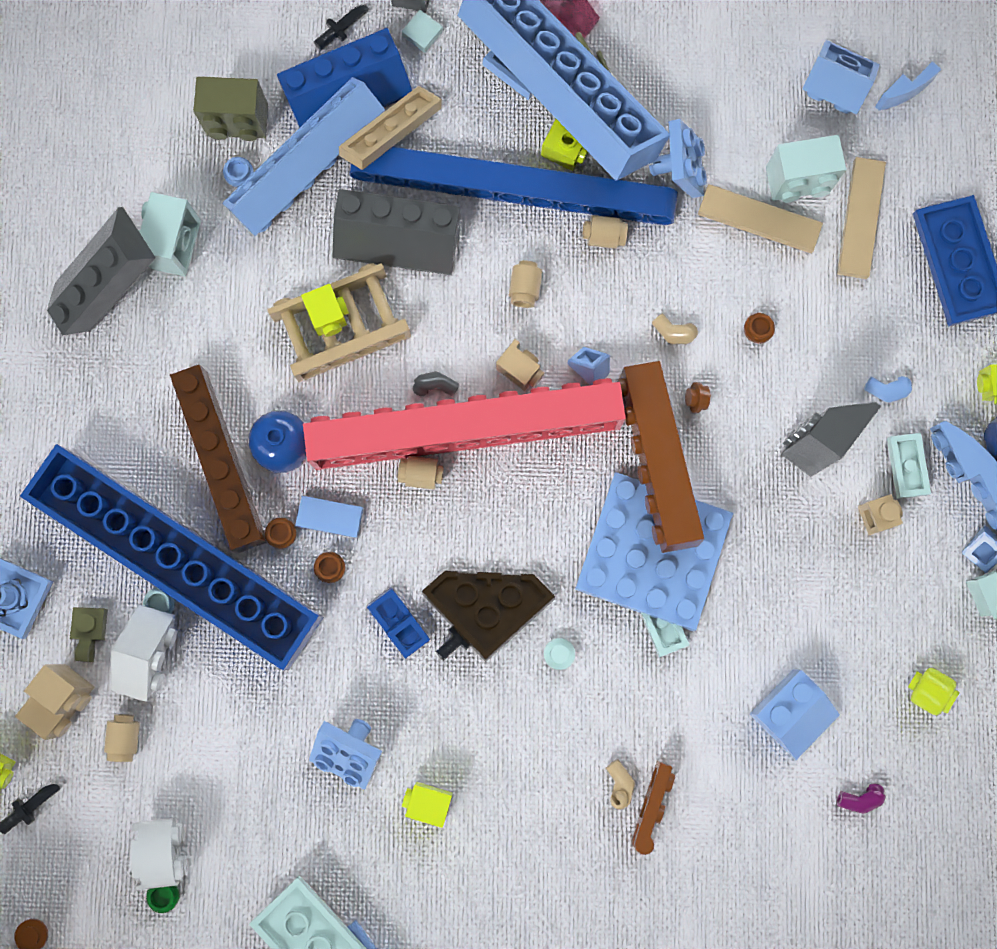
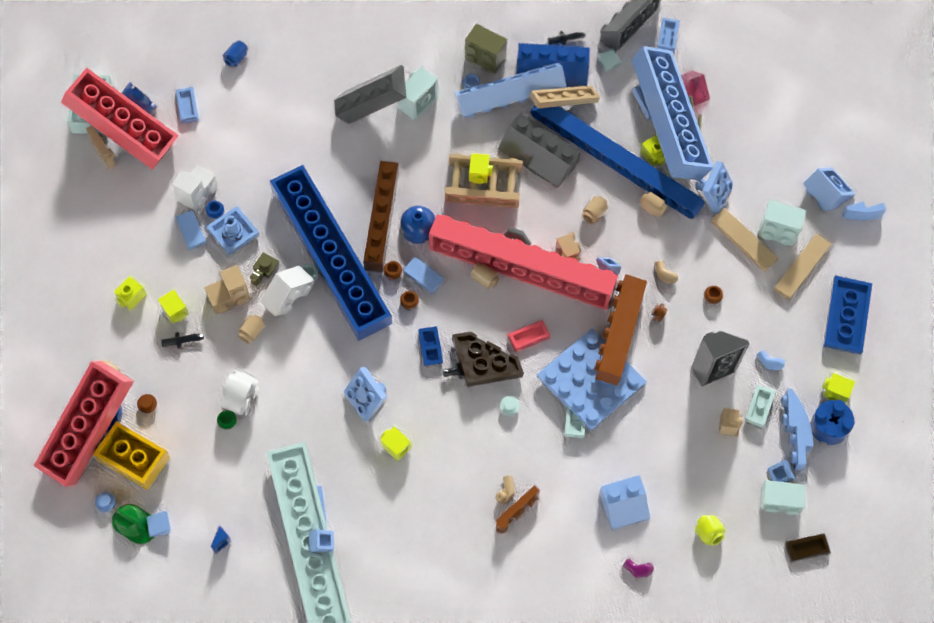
camera: 25 degrees right, 15 degrees down
(530, 530) = (528, 336): none -> coral tile

